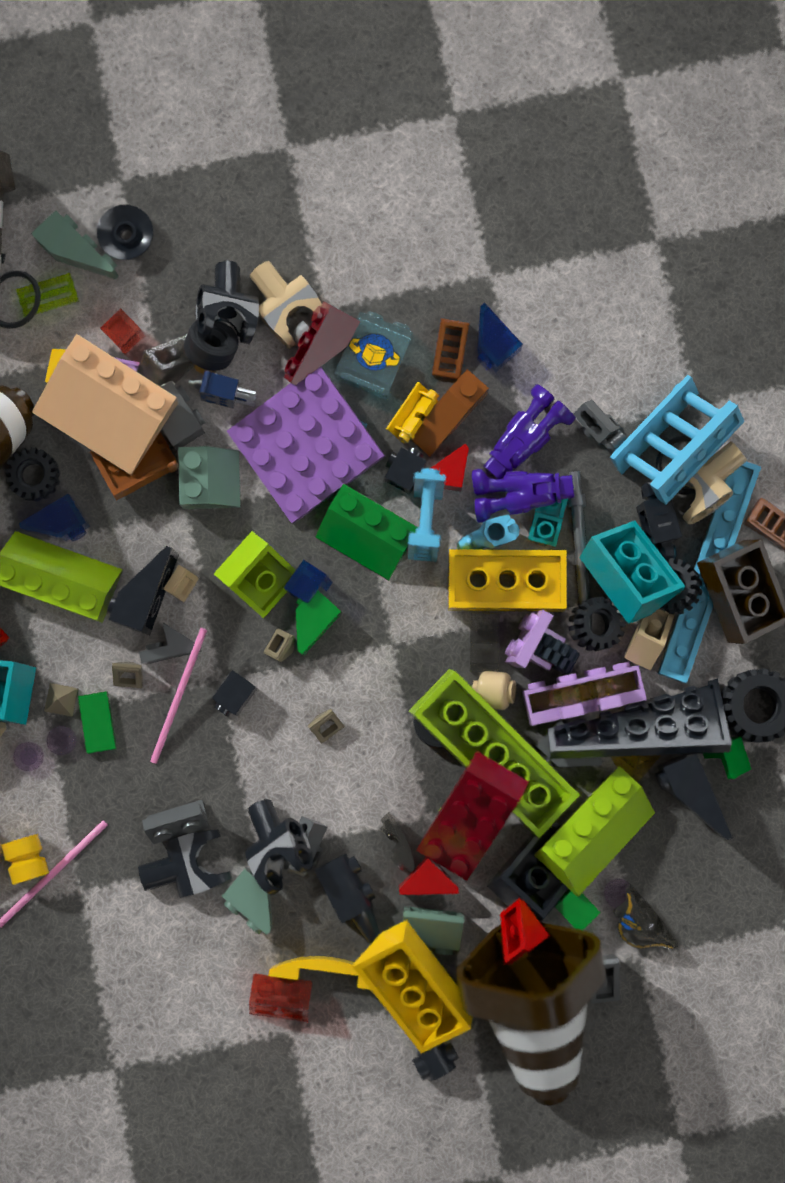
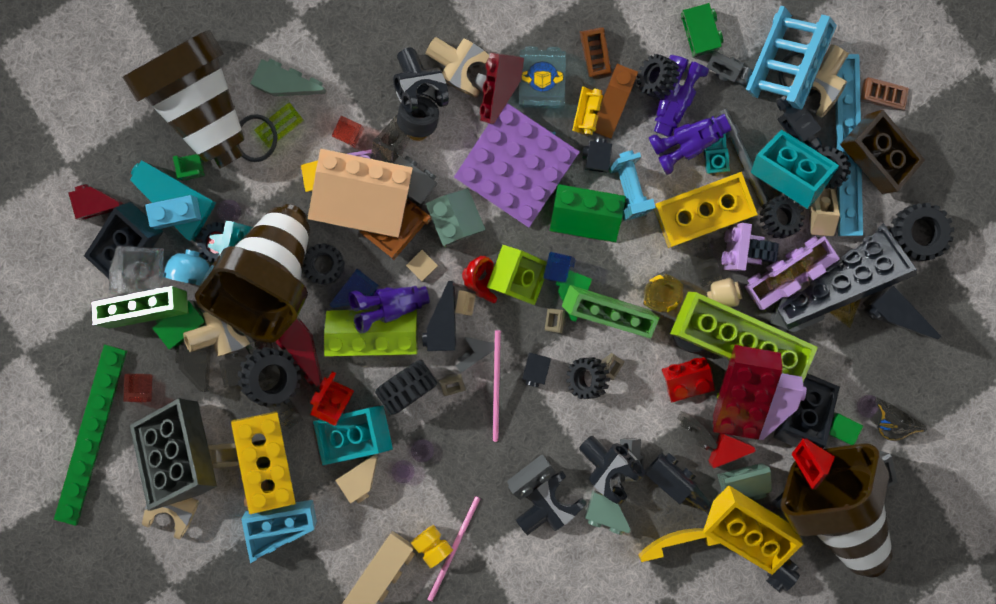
camera: 25 degrees left, 5 degrees up
(61, 699) = (410, 421): dark tan slope -> none
(69, 654) = (406, 387): none -> black tyre
(91, 550) = (391, 304): none -> dark purple piece
(97, 722) = (443, 427): green tile -> none
(122, 219) = (316, 44): black dish -> none
(148, 520) = (422, 265): none -> tan tile
(204, 552) = (473, 273): none -> red hat
(223, 390) = (441, 148): dark blue piece -> none
(280, 997) = (655, 573): clear red bracket -> none
(302, 729) = (577, 379): none -> black tyre
(346, 657) = (610, 311): none -> bright green brick
(411, 776) = (688, 379): none -> red bracket
(420, 661) = (663, 293): none -> clear yellow hair
(454, 468) = (632, 141): red slope -> none
(491, 534) = (680, 182): medium azure animal -> none
(495, 340) = (626, 33): clear blue slope -> none
(511, 402) = (666, 79): none -> black tyre
(511, 845) = (784, 403): none -> lavender slope
(584, 369) = (702, 29): none -> green brick
(596, 831) = (838, 367): lime slope -> none
(735, 761) = (921, 281): green panel -> none

